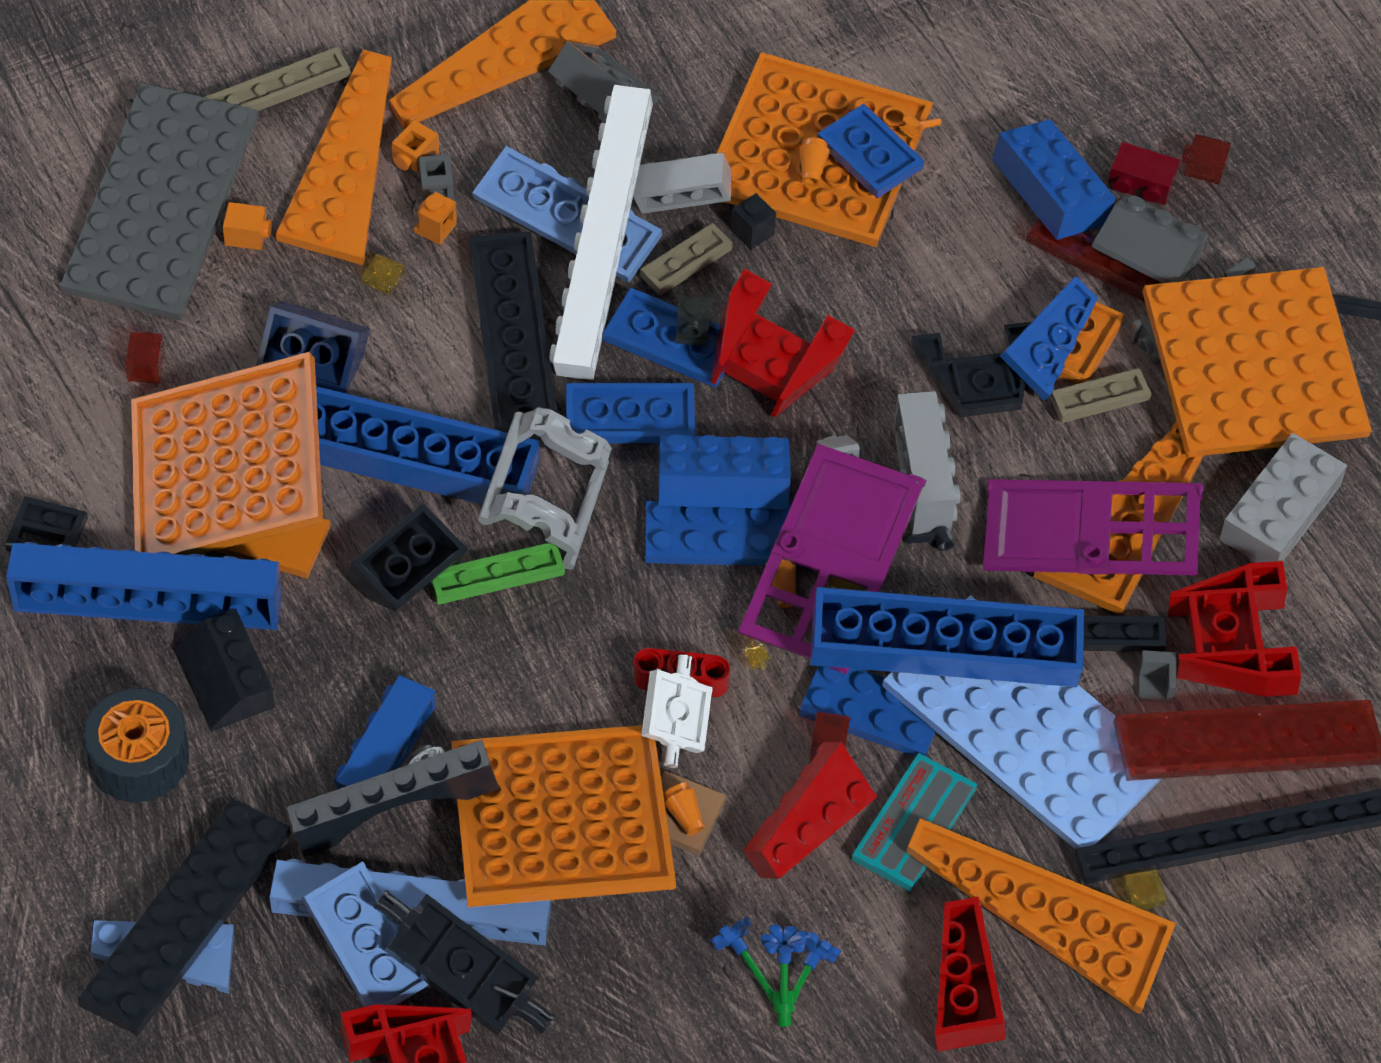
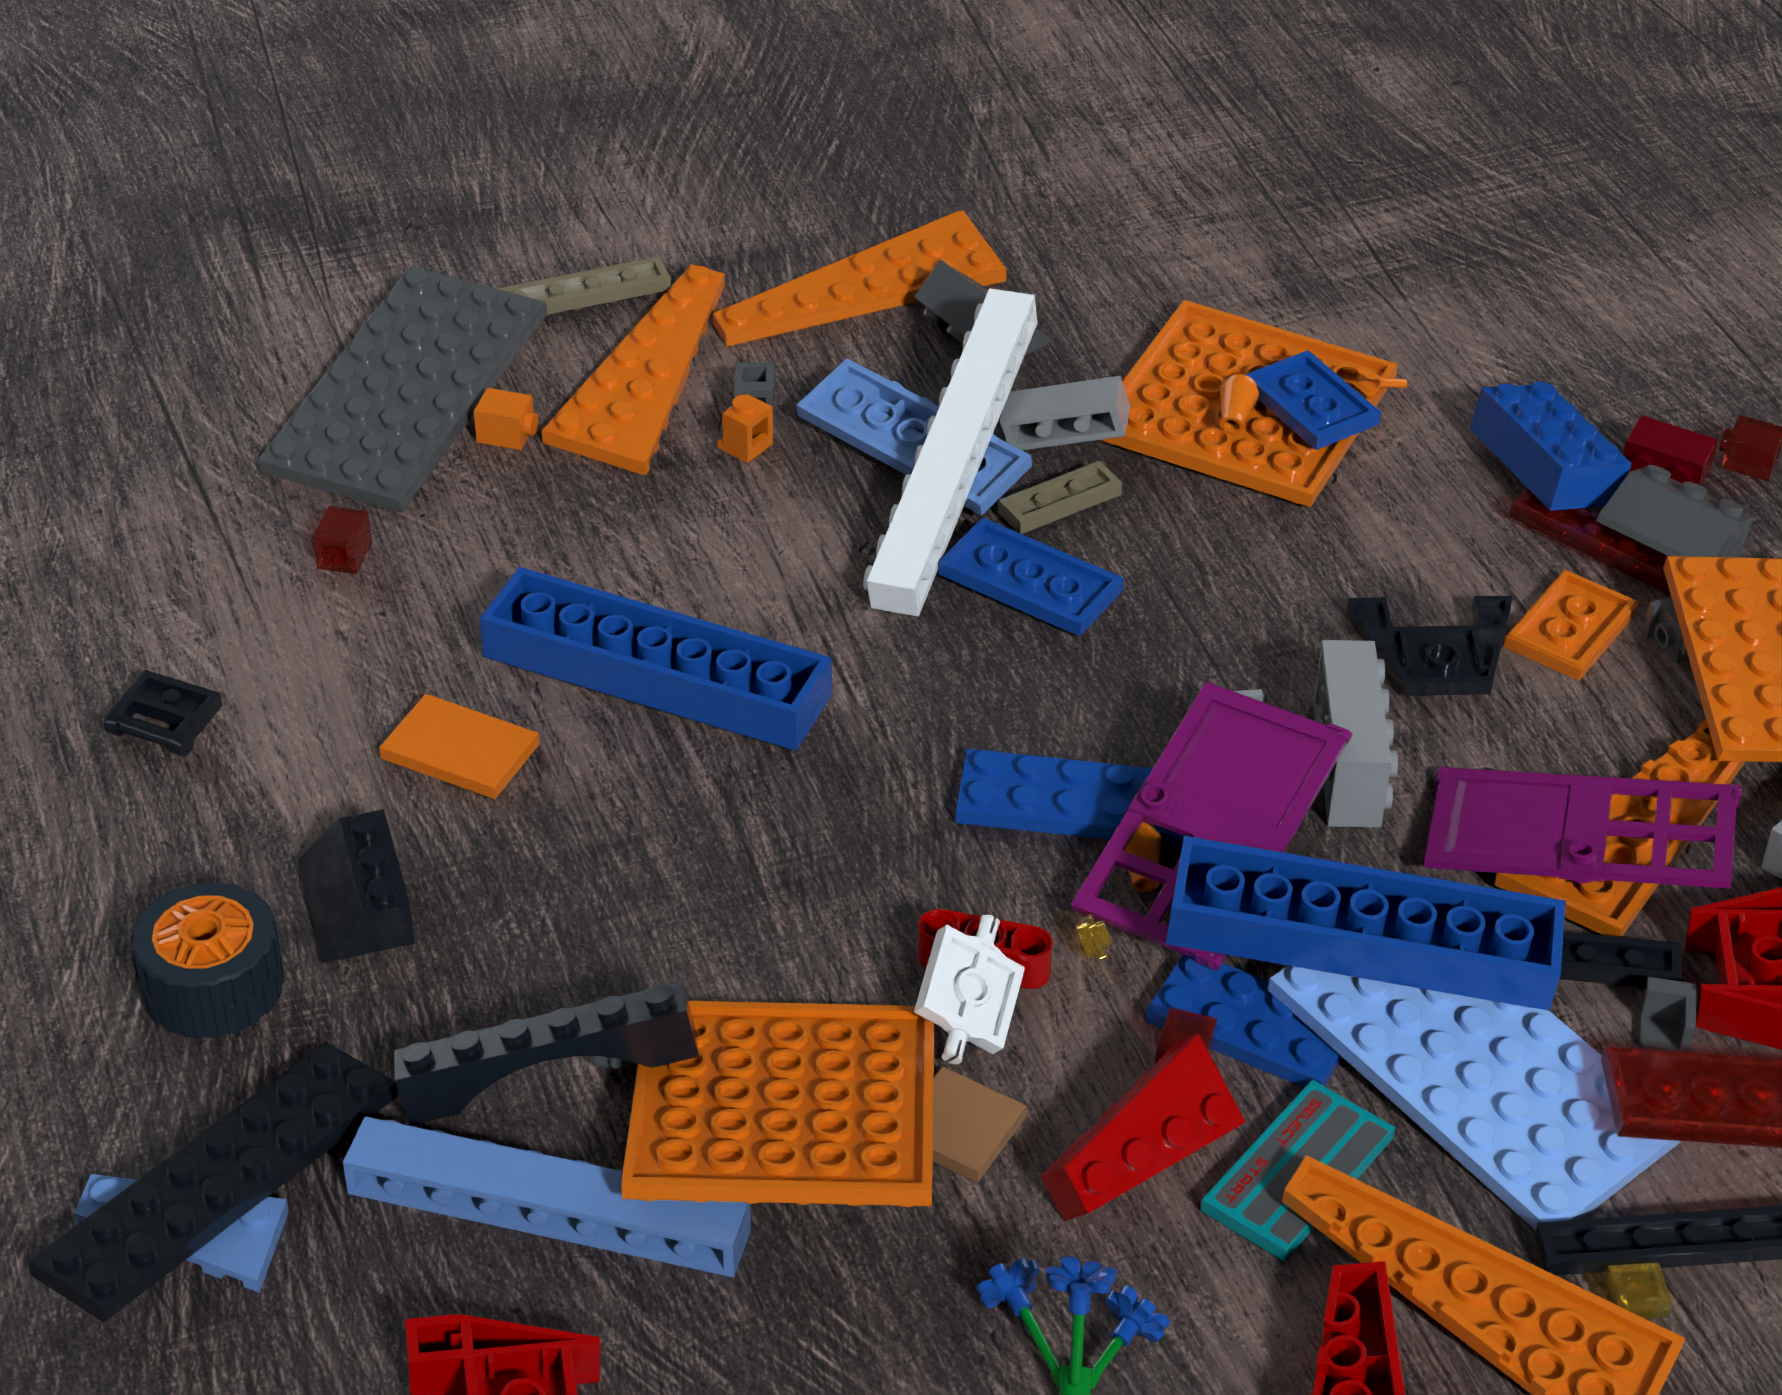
camera: 10 degrees right, 15 degrees down
(142, 585) = (267, 774): blue brick -> none
(227, 459) = (412, 647): orange plate -> none
(331, 341) = (558, 541): dark blue slope -> none
(360, 936) = (468, 1225): medium blue plate -> none
(383, 274) = (668, 483): clear yellow plate -> none
(389, 732) = (572, 973): blue brick -> none
(406, 559) = (625, 776): black slope -> none
(414, 143) = (729, 348): orange brick -> none
(462, 963) = (600, 1277): black plate -> none
(498, 573) = (750, 811): bright green plate -> none
(512, 326) = (824, 557): black plate -> none
(532, 510) = (808, 728): light grey piece -> none
(631, 410) = (961, 651): blue plate -> none
(683, 805) = (962, 1108): orange cone -> none
(693, 320) = (1058, 550): pearl dark grey brick -> none
(724, 472) = (1075, 718): blue brick -> none
(753, 221) = (1152, 463): black brick -> none
(767, 354) = (1158, 602): red wedge -> none
(941, 535) = (1368, 824): black hand -> none
(1046, 342) = (1534, 611): blue wing -> none
(1100, 395) = (1600, 685): dark tan plate -> none

